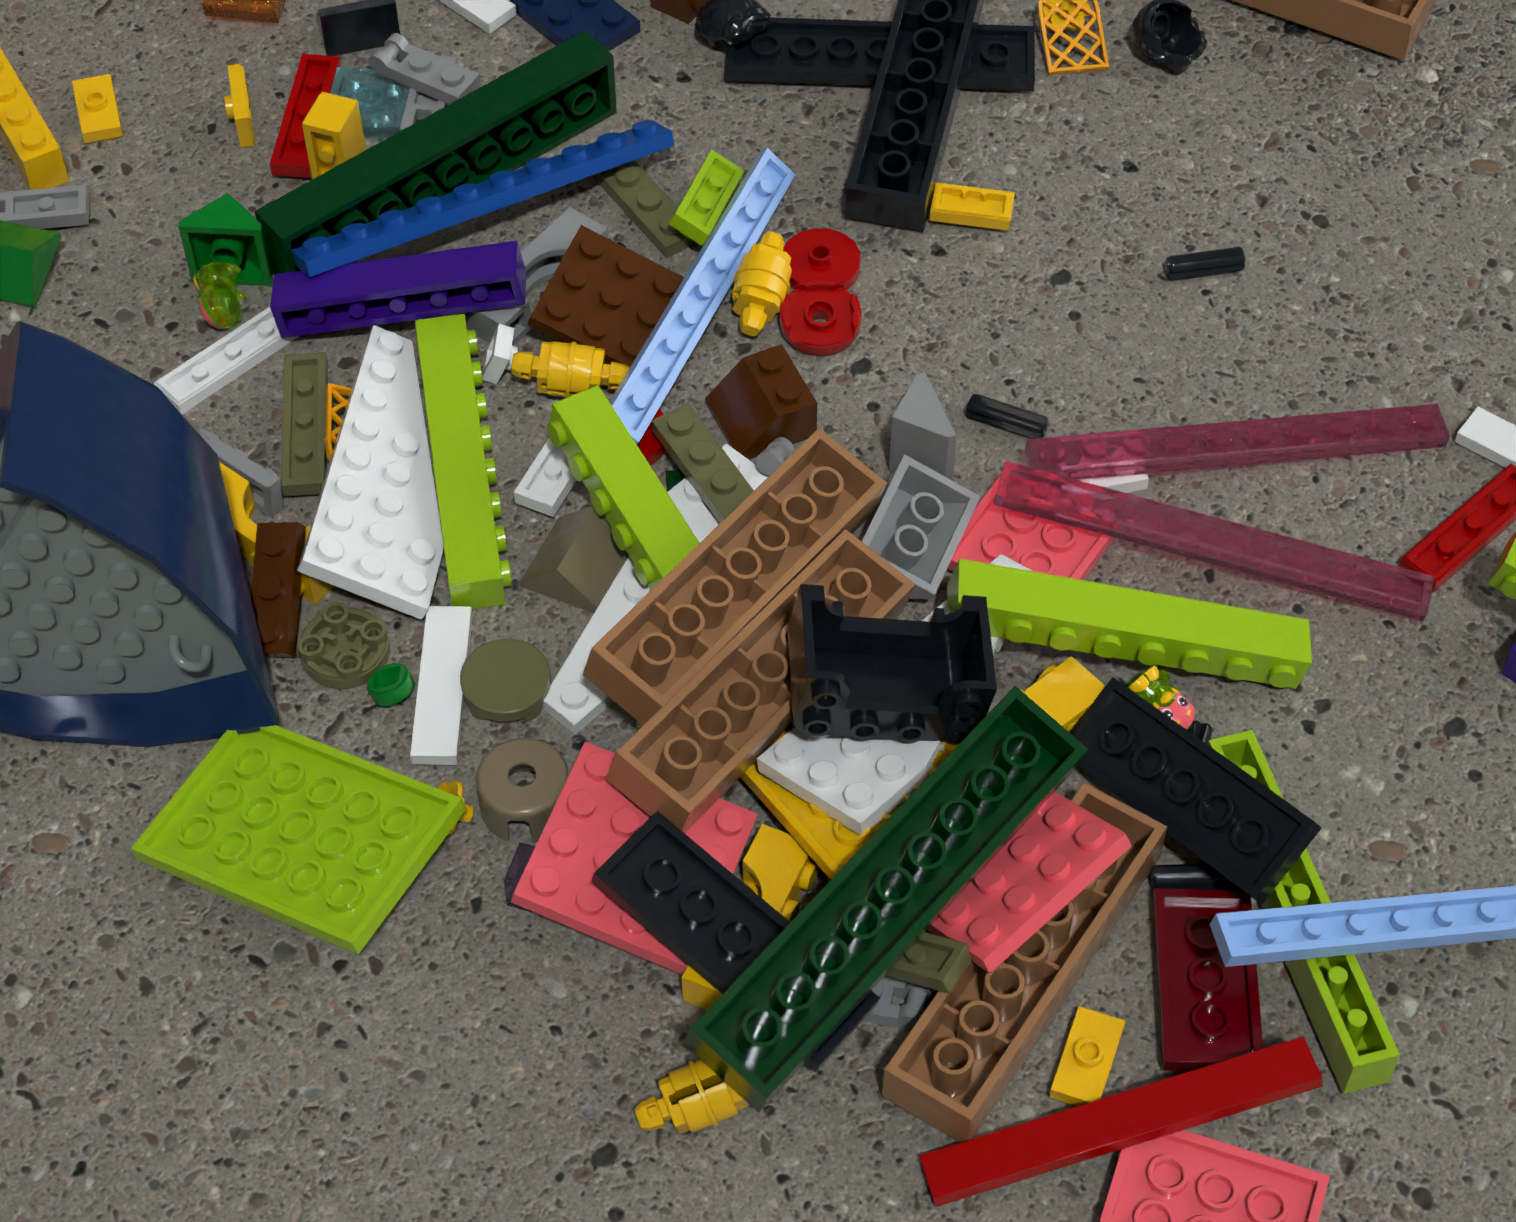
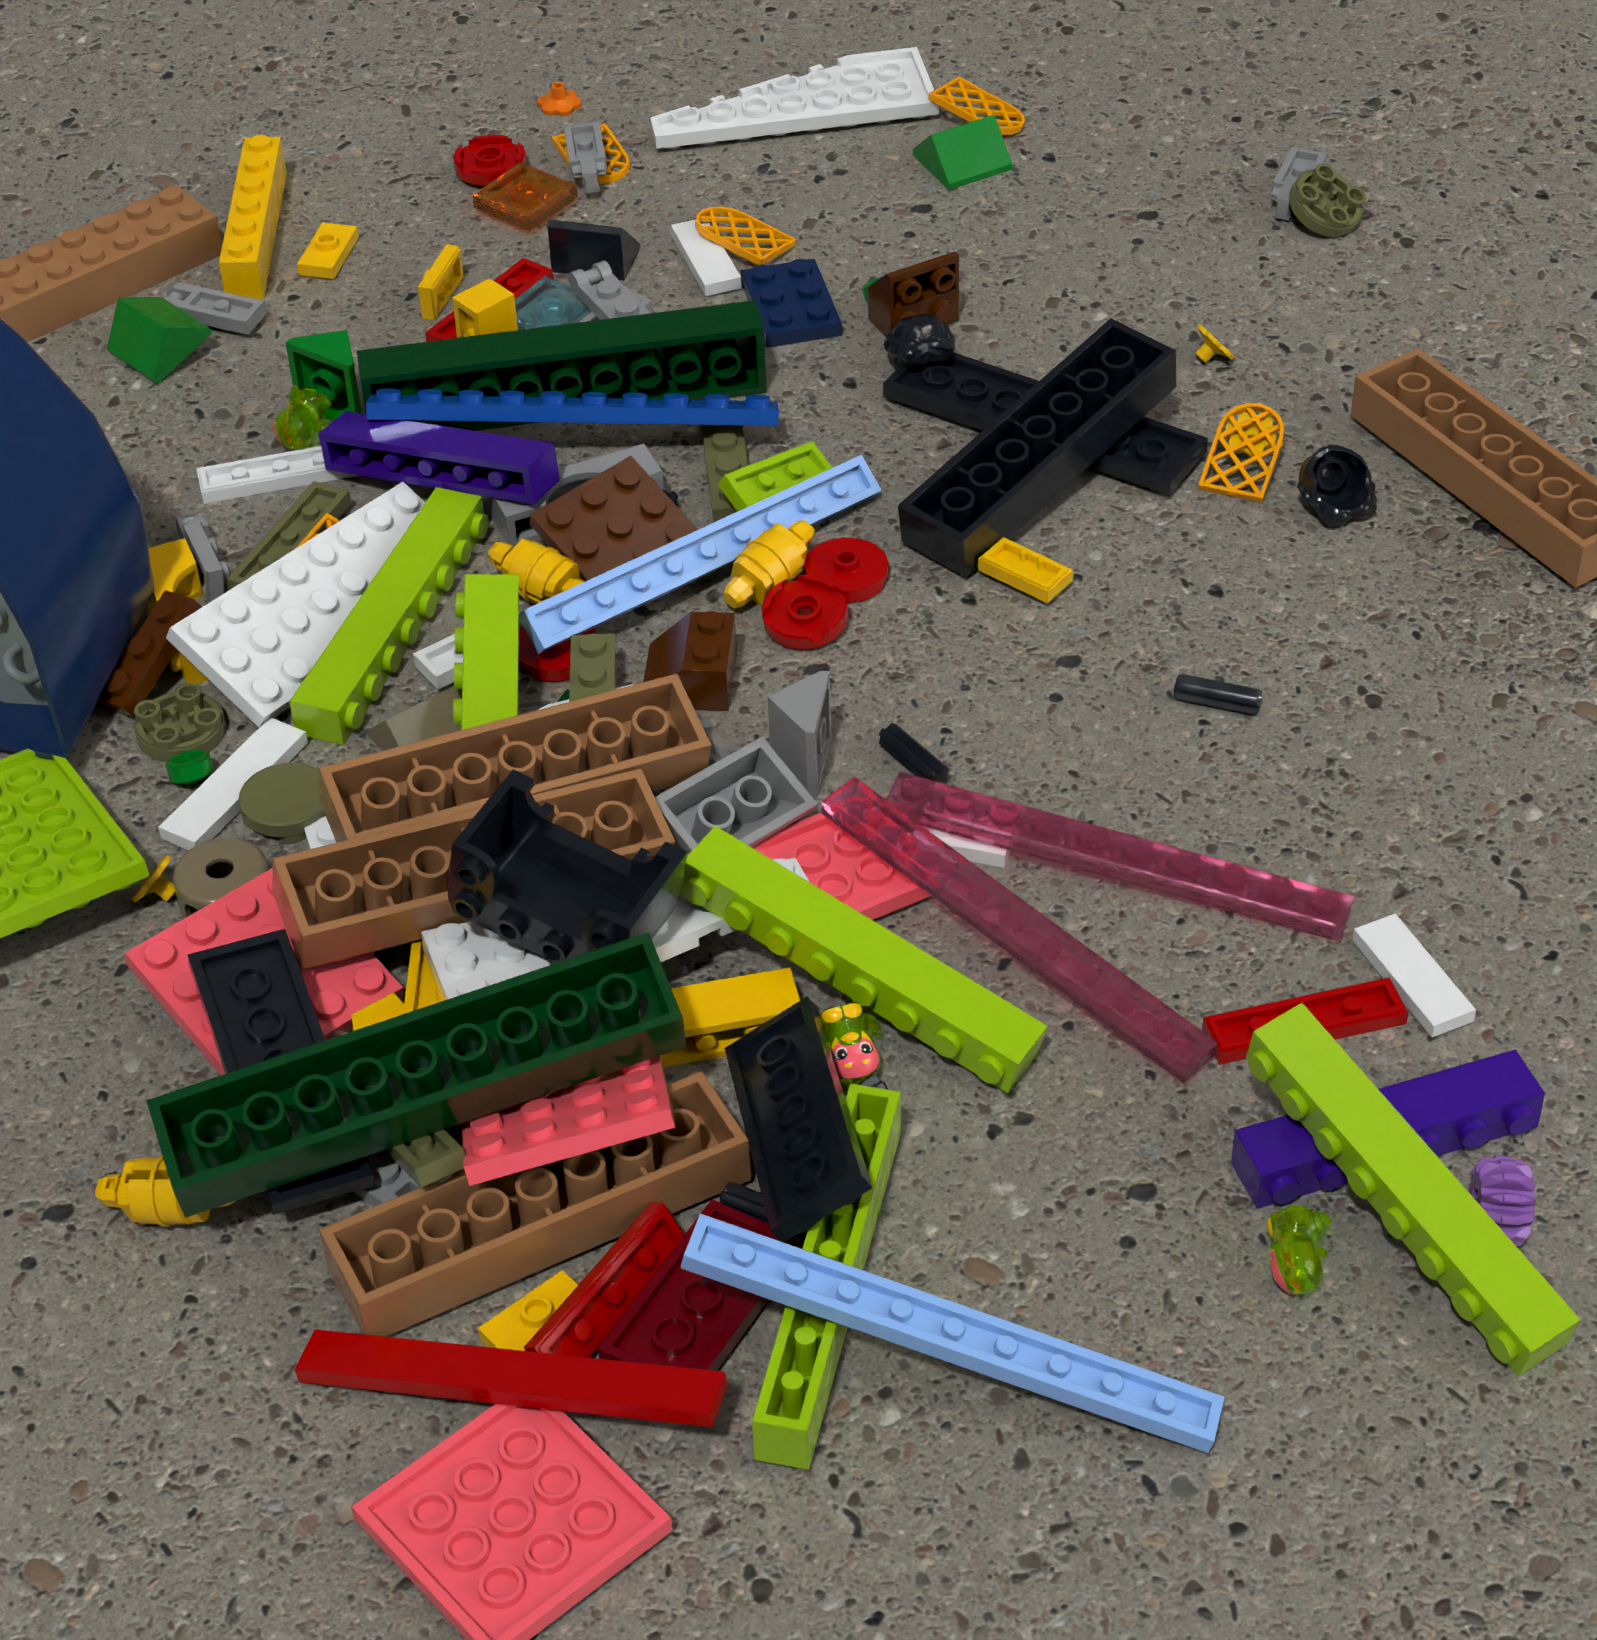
camera: 30 degrees right, 10 degrees down
(499, 354) = (497, 531): white plate -> none
(1133, 1003) = (610, 1286): none -> red tile

